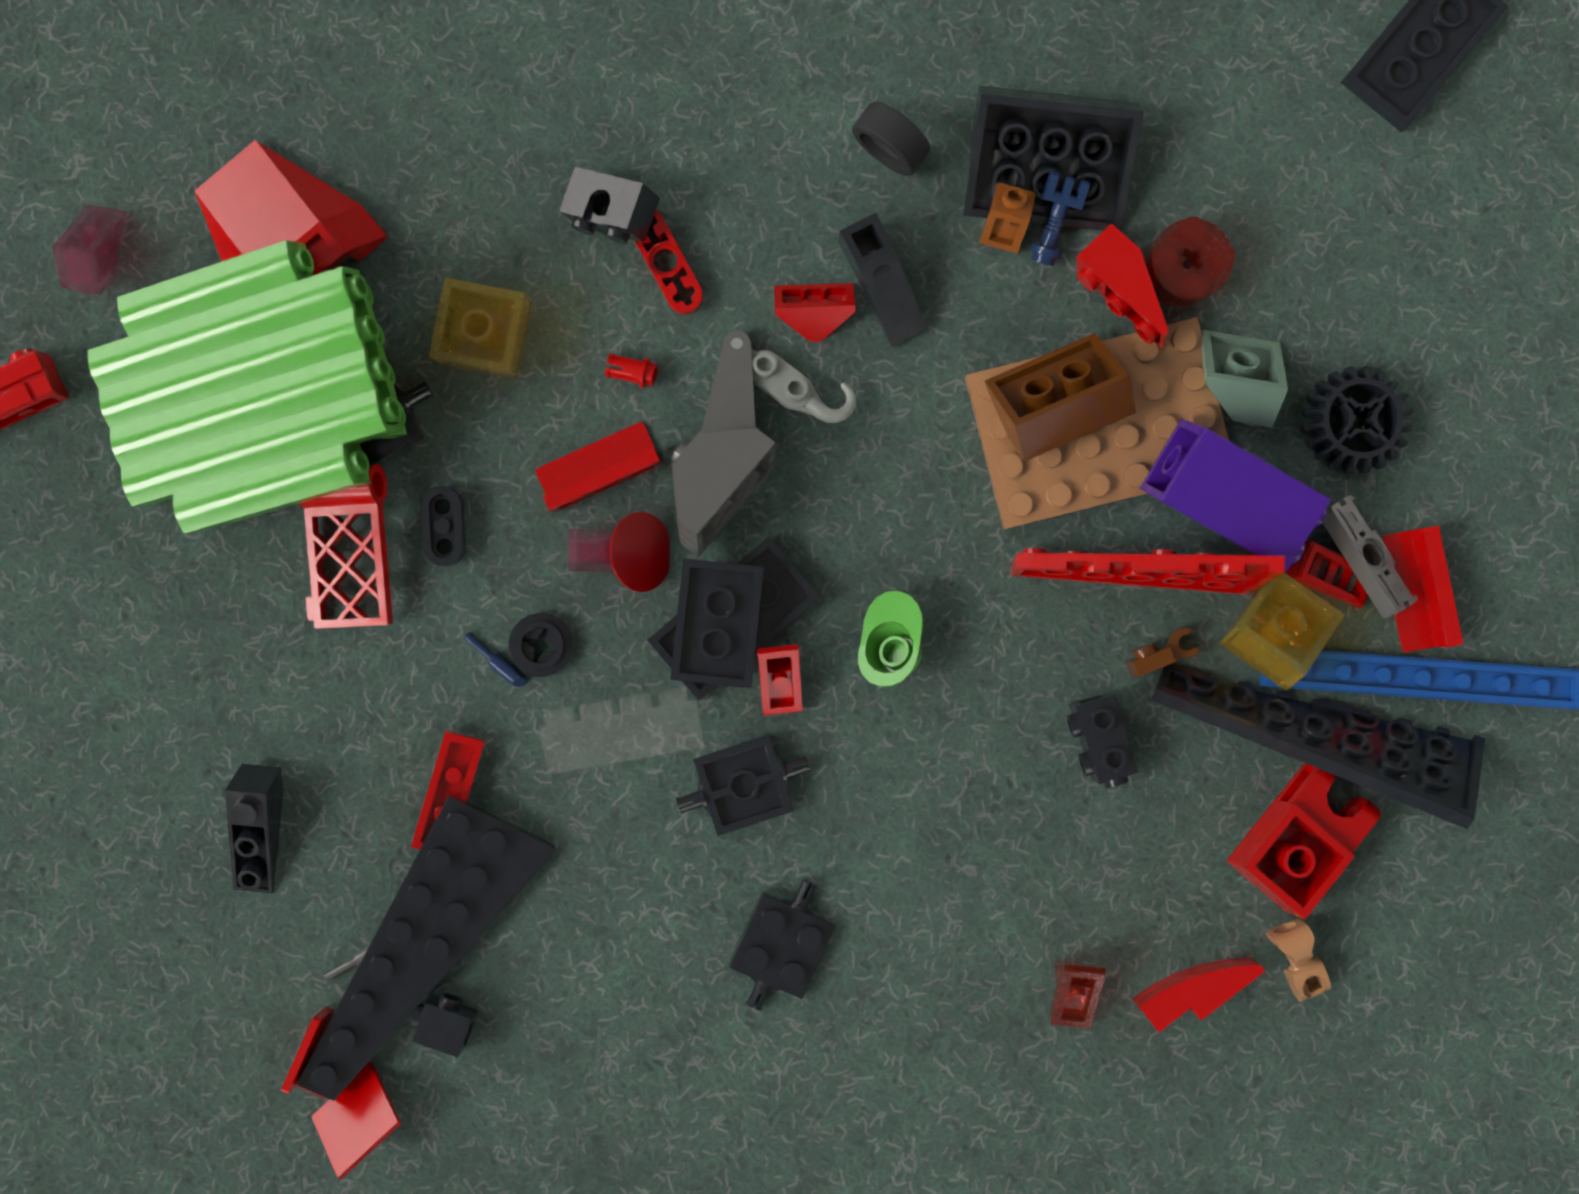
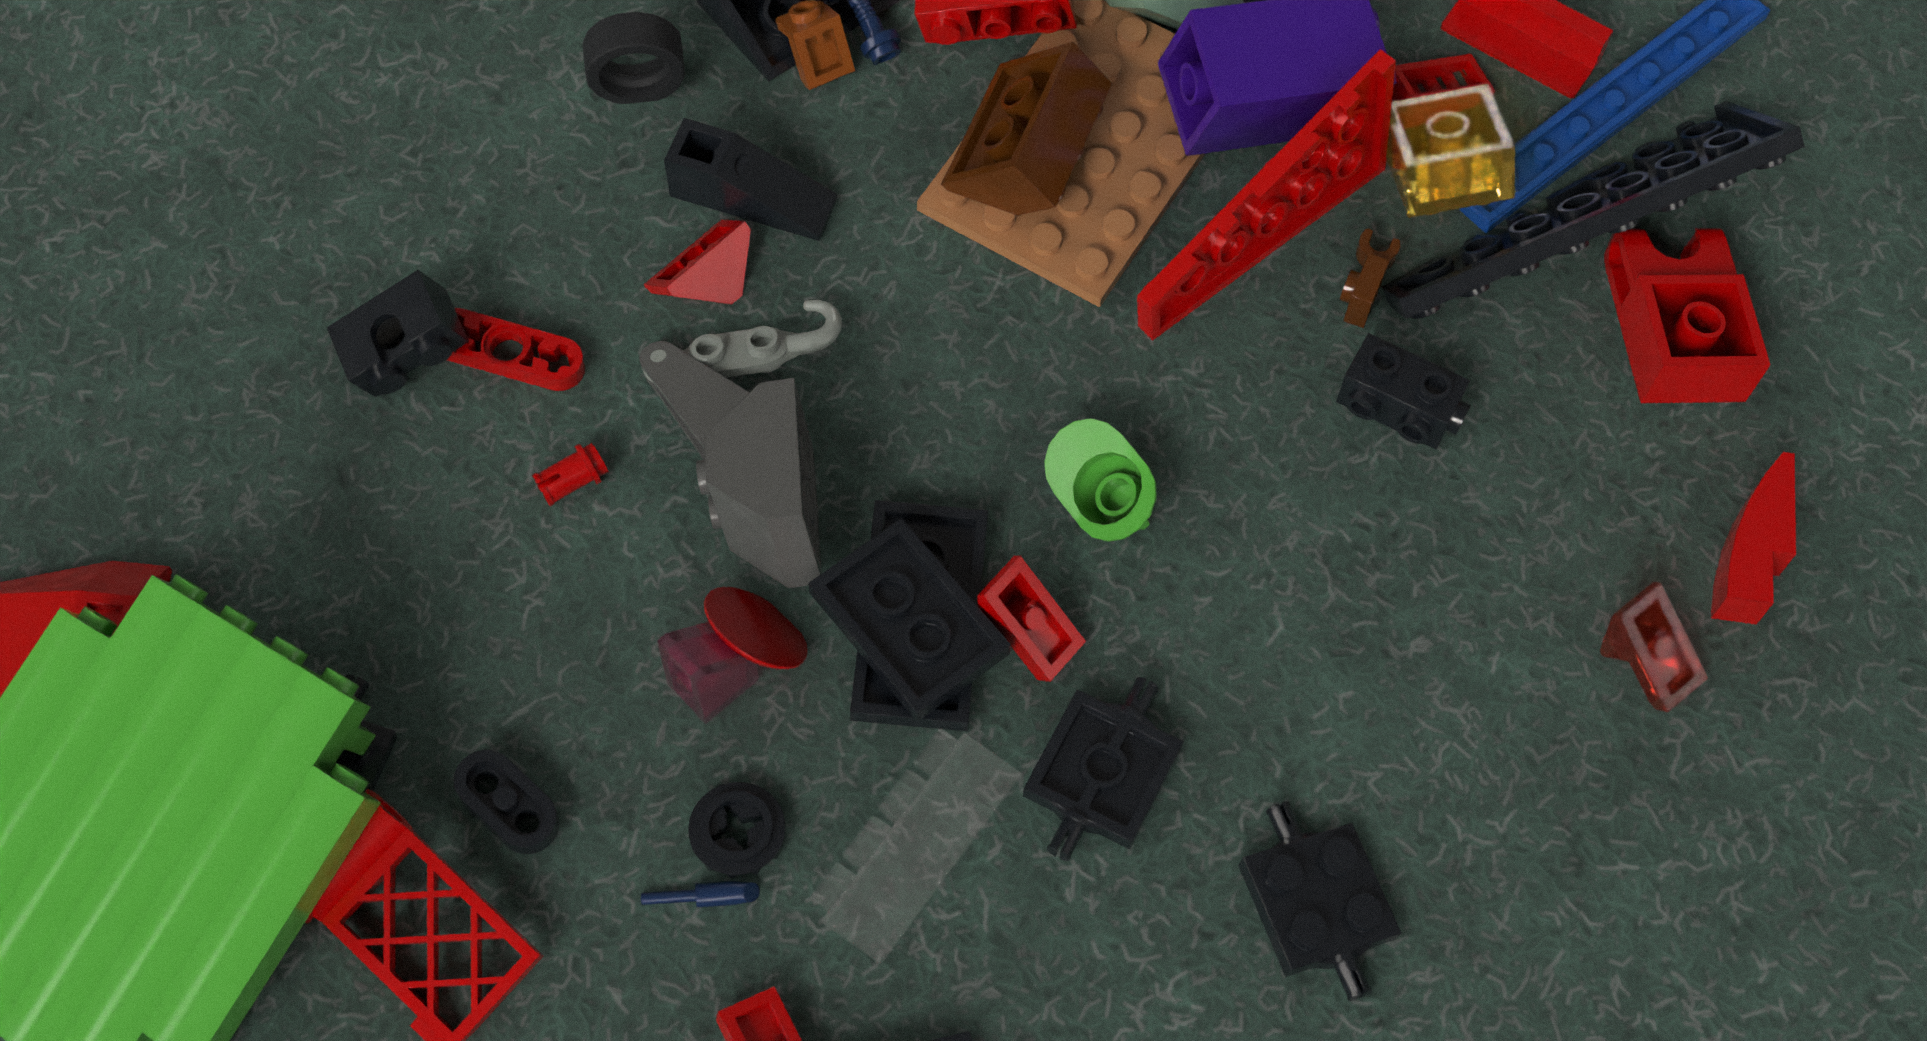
camera: 45 degrees left, 25 degrees down
(480, 328) = (365, 559): clear yellow brick -> none
(597, 467) = (625, 598): red panel -> none
(1306, 973) = (1834, 432): medium nougat leg -> none
(1380, 579) = (1455, 42): dark grey piece -> none

